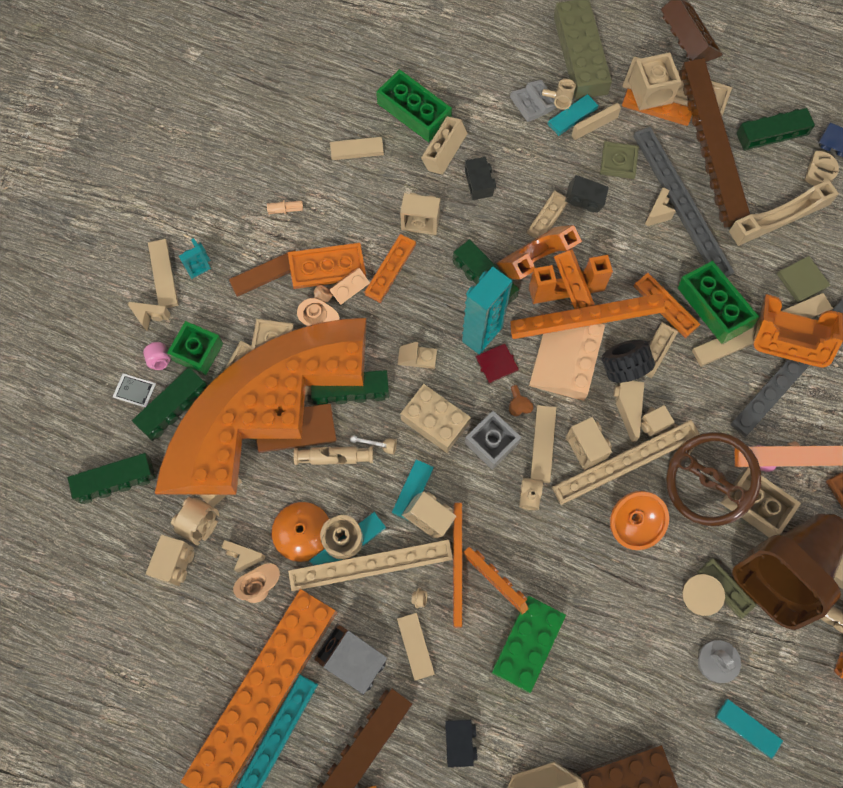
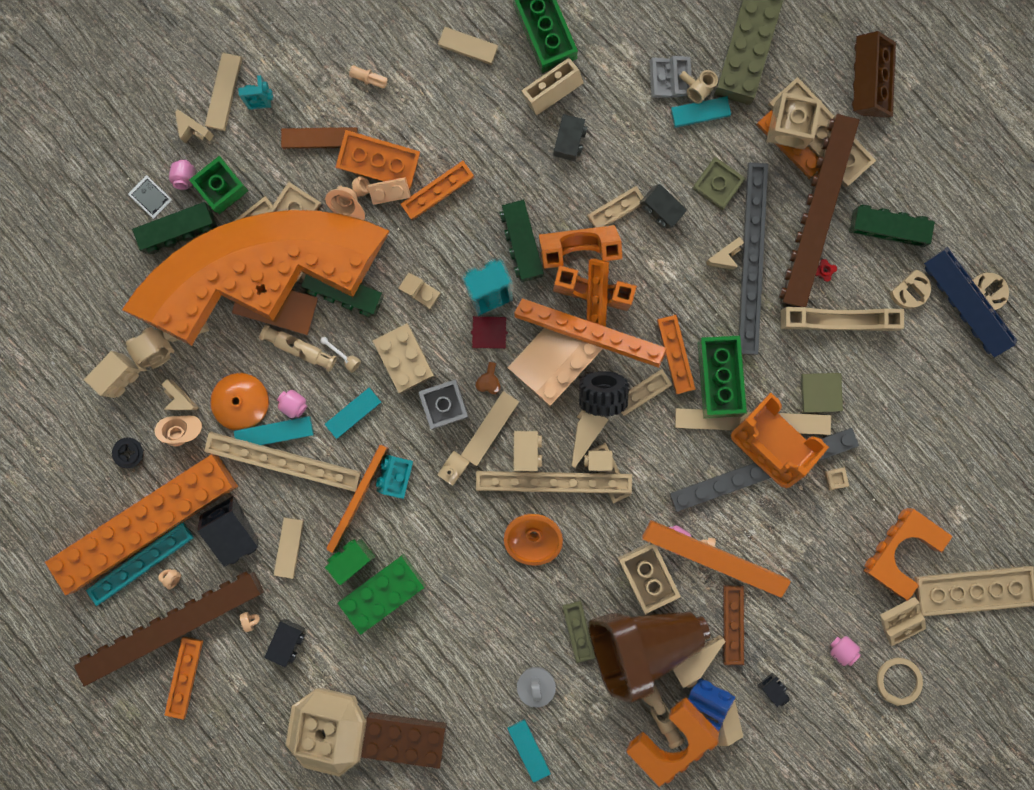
camera: 30 degrees right, 15 degrees up
(111, 478) = (94, 272): dark green brick -> none
(206, 630) = (121, 447): none -> black gear
(316, 736) = (171, 579): none -> light nougat tile
(336, 527) = (256, 427): tan brick -> none
(353, 506) = (291, 404): none -> bright pink head
(411, 741) = (246, 621): none -> light nougat tile
(419, 598) = (311, 510): tan plate -> none
(420, 213) = (490, 149): tan brick -> none
(429, 514) = (351, 445): tan brick -> none
(480, 528) = (394, 476): none -> teal bracket
(483, 625) = (350, 561): none -> green brick
(503, 585) = (383, 537): orange plate -> none
(596, 121) = (718, 131): tan tile -> none
(703, 594) = (554, 628): tan tile -> none
(747, 498) = (616, 538): reddish brown piece -> none
(749, 182) = (826, 276): none -> red plate

